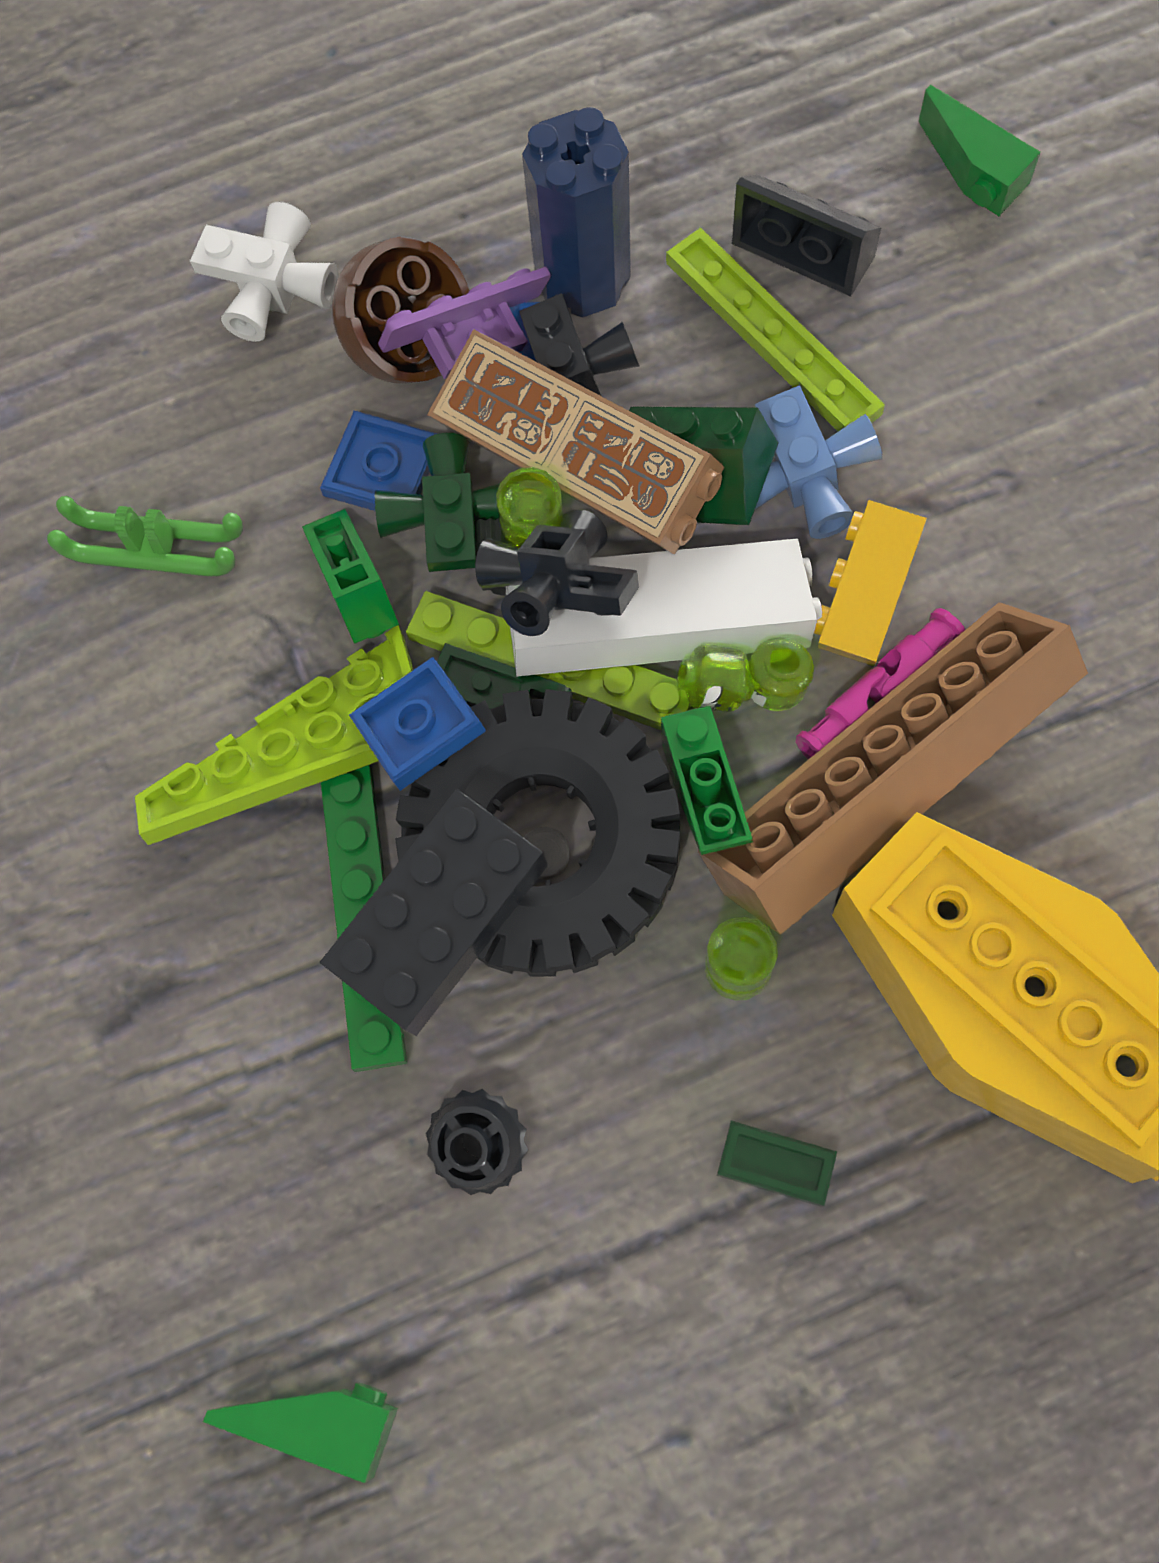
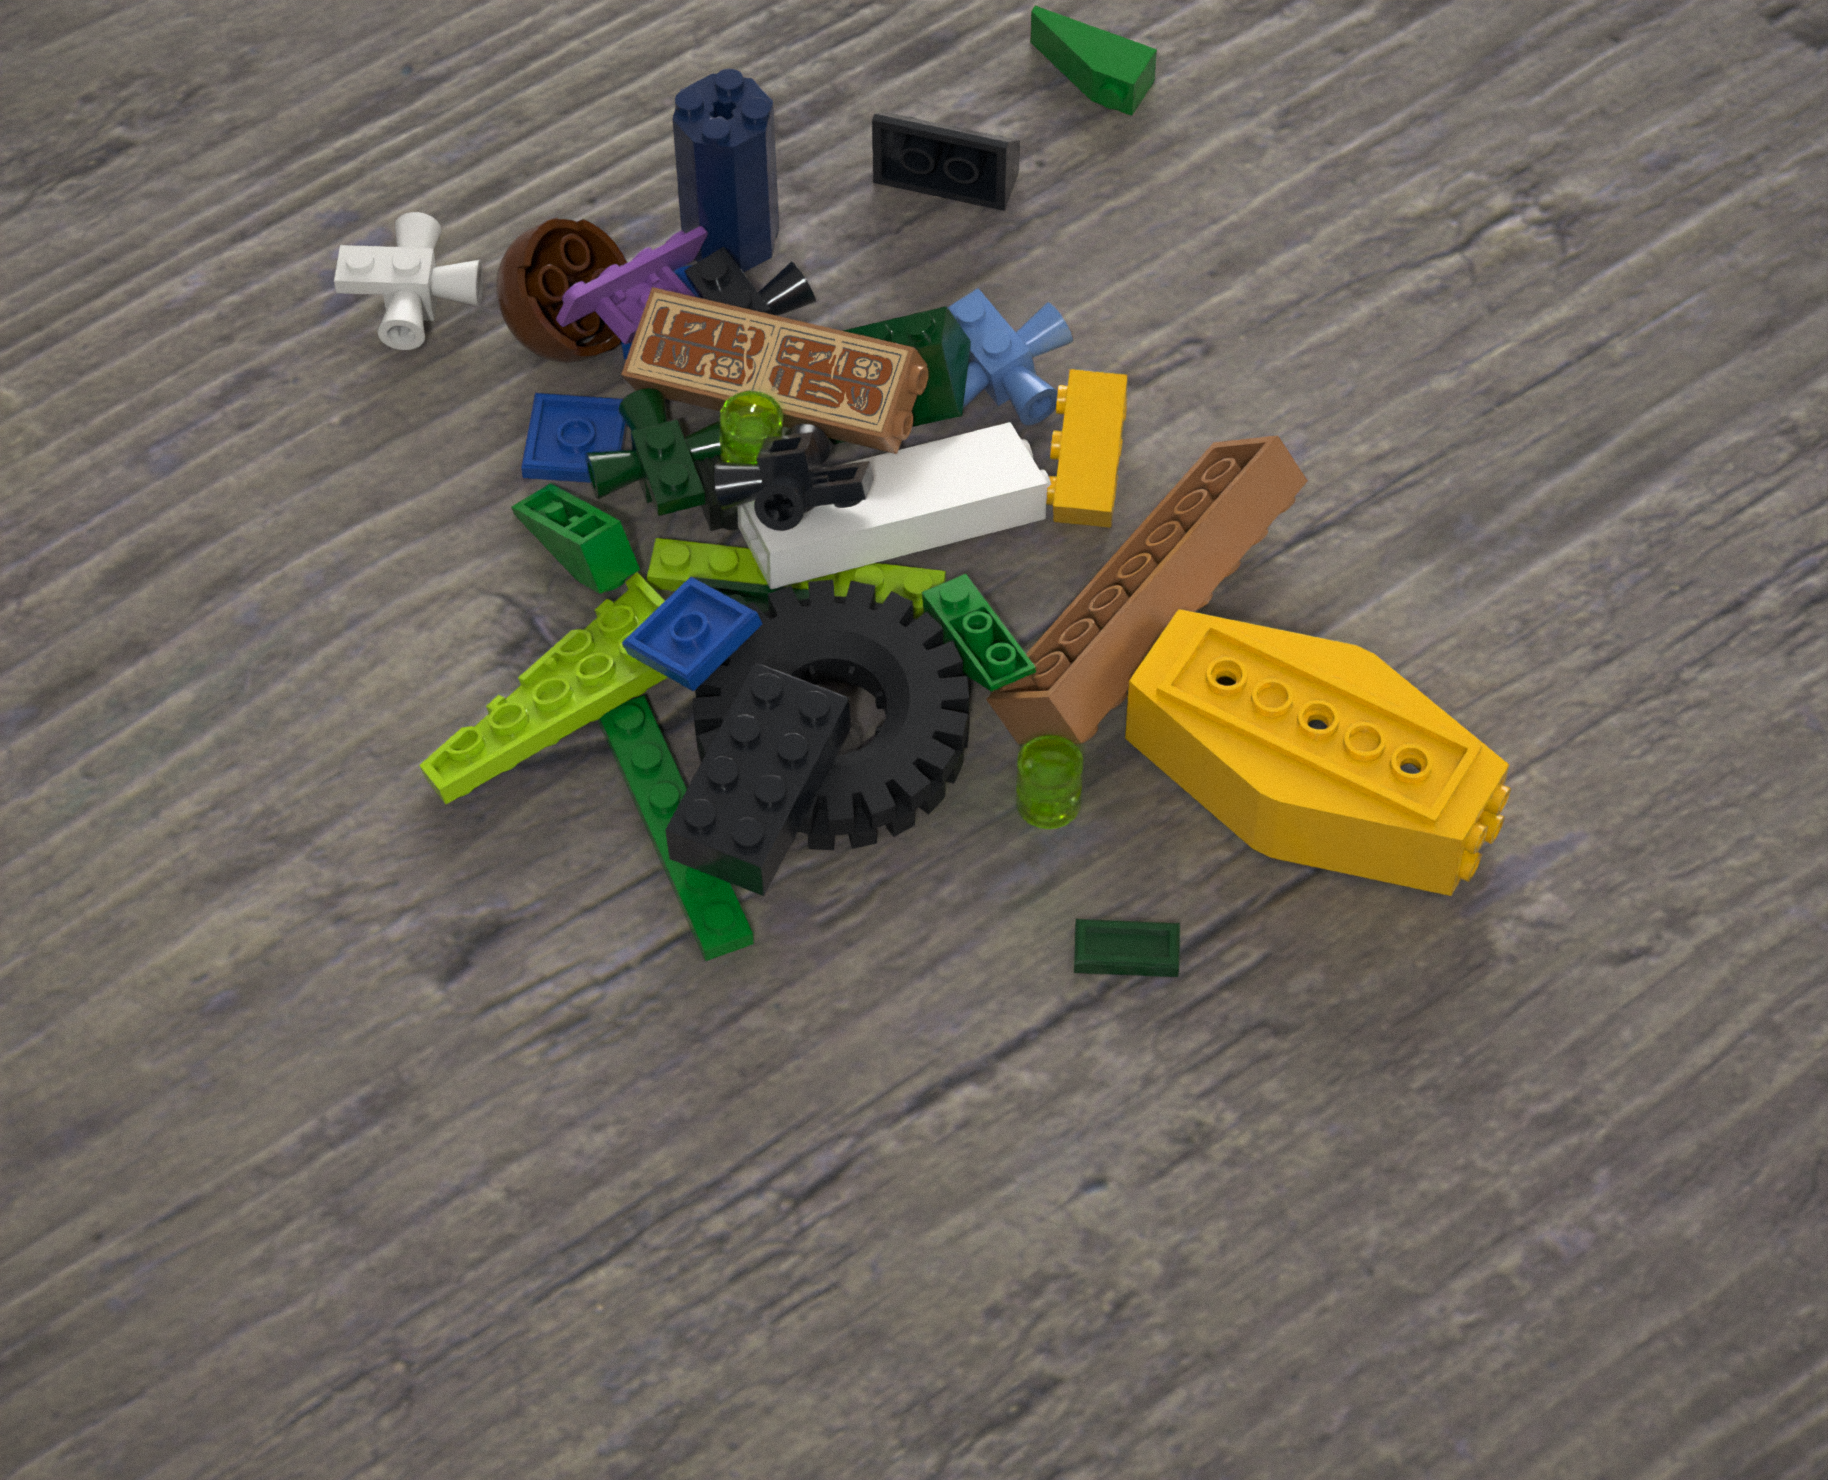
camera: 20 degrees left, 15 degrees down
(146, 540) = (359, 544): bright green piece -> none
(329, 1428) = (757, 1235): green slope -> none
(486, 1131) = (841, 984): black piece -> none
(716, 678) = (967, 551): clear neon green head -> none
(772, 331) = (931, 248): lime plate -> none
(780, 673) = (1022, 541): clear neon green head -> none
(878, 682) = (1128, 519): dark pink piece -> none

